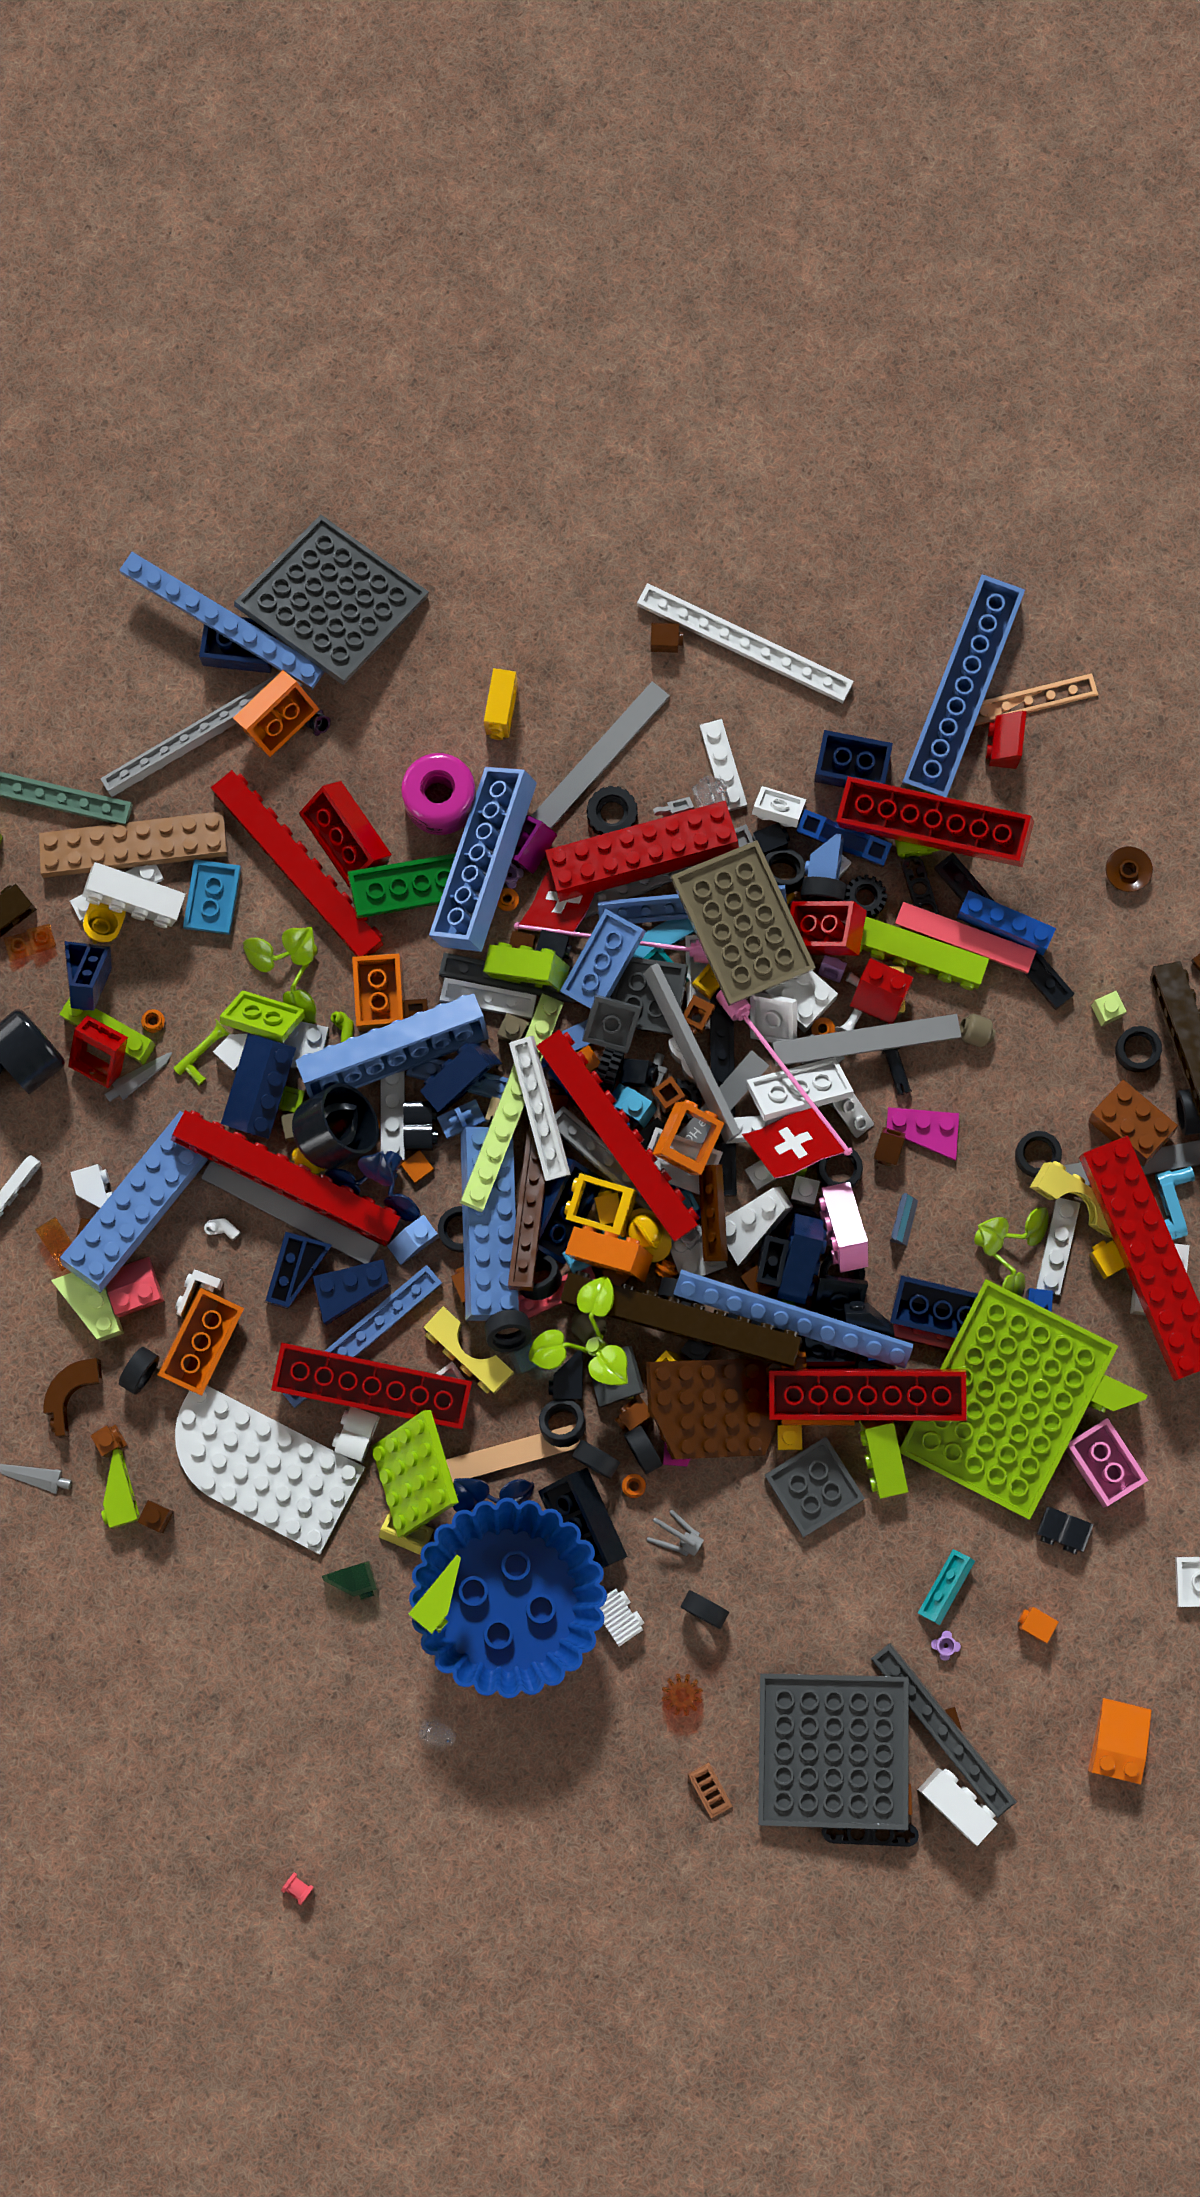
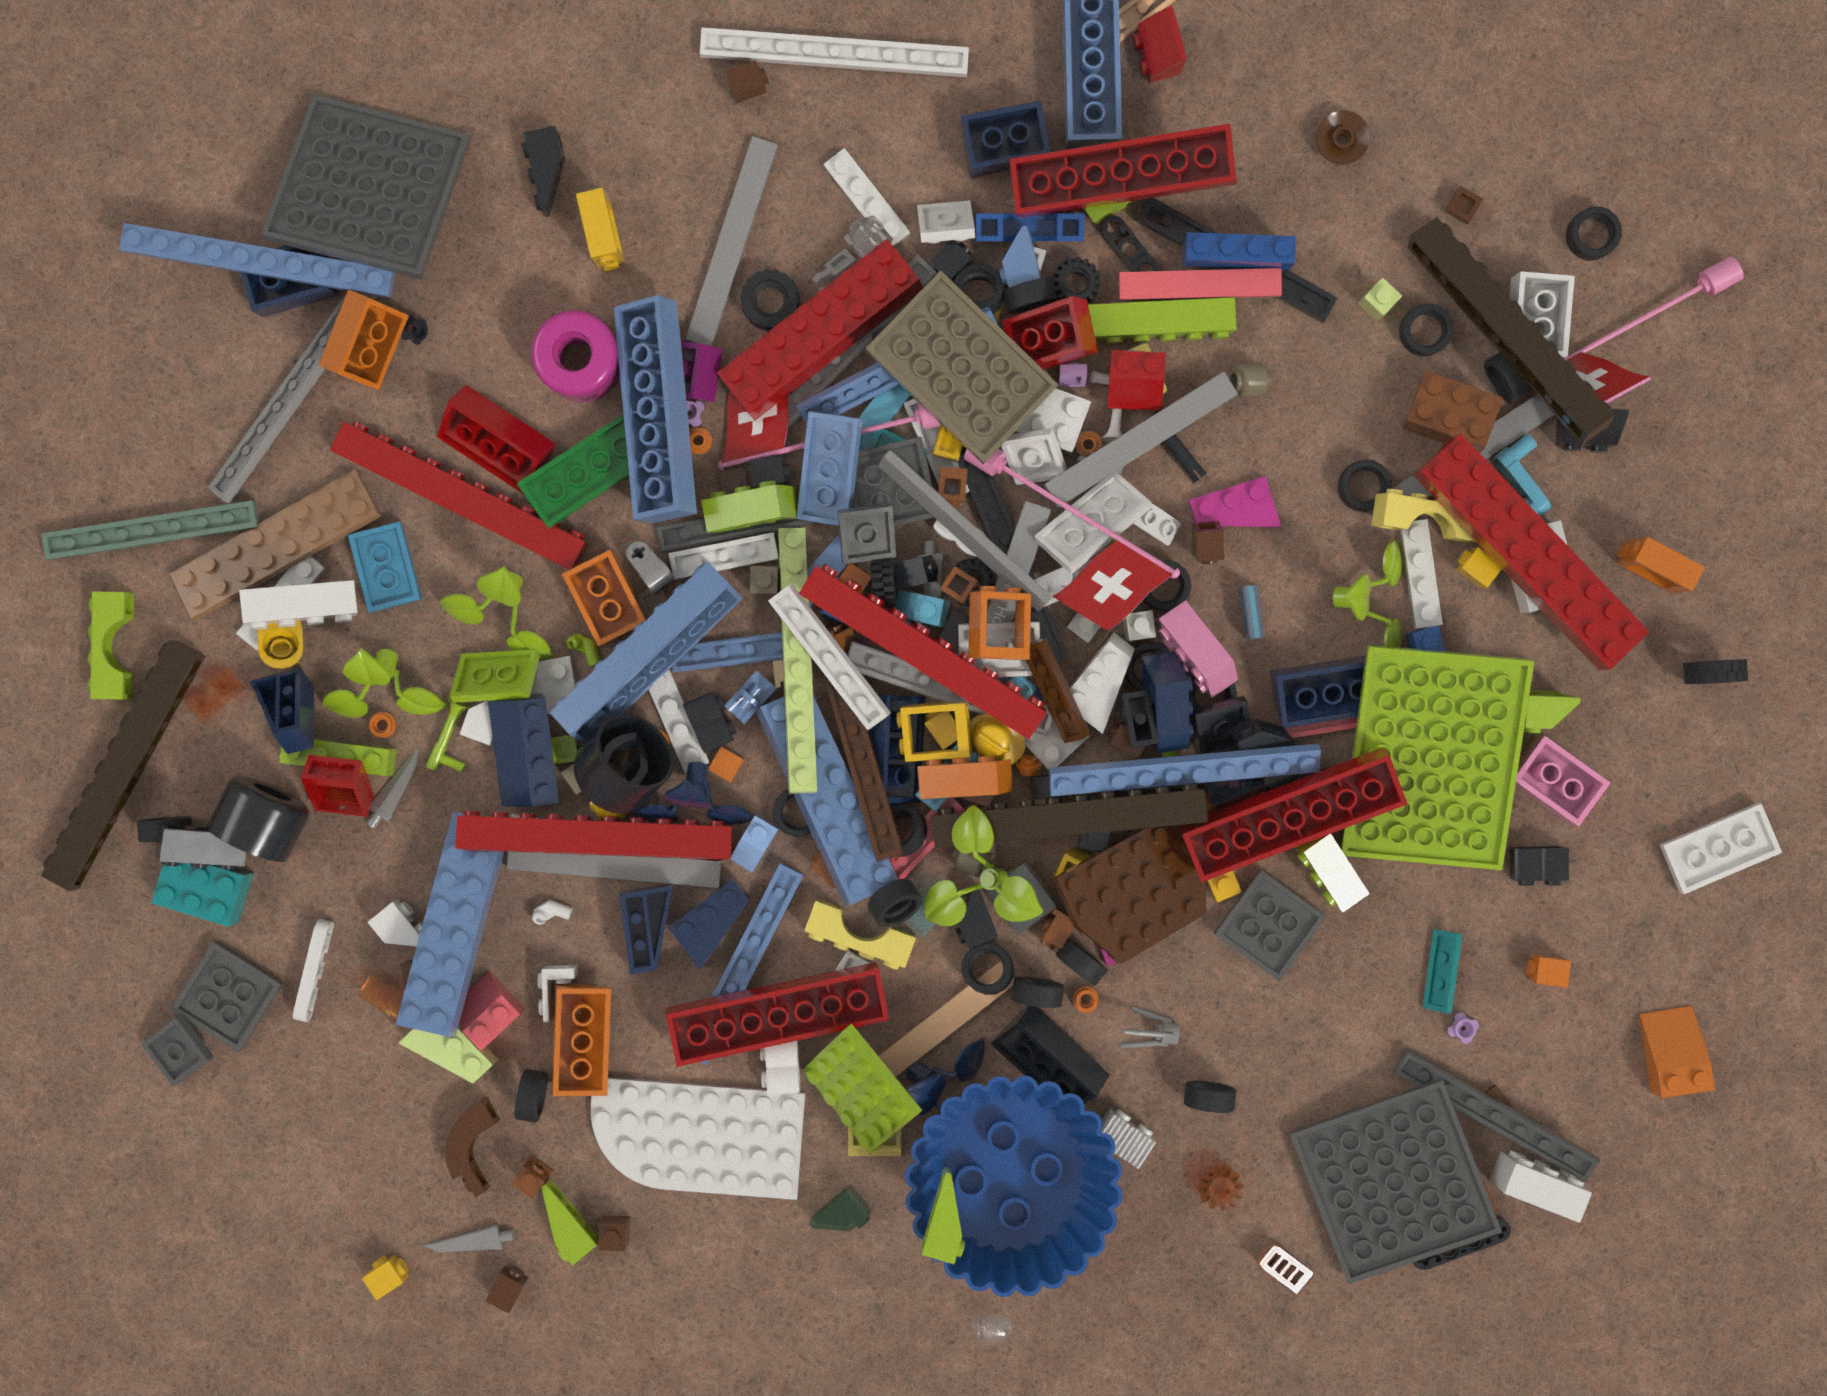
camera: 30 degrees left, 10 degrees up
(45, 1526) = (507, 1288): none -> reddish brown brick
(166, 966) = (378, 671): none -> lime plant
(424, 981) = (649, 568): none -> light grey piece
(459, 1075) = (729, 653): dark blue wedge -> none
(481, 635) = (546, 161): none -> black slope

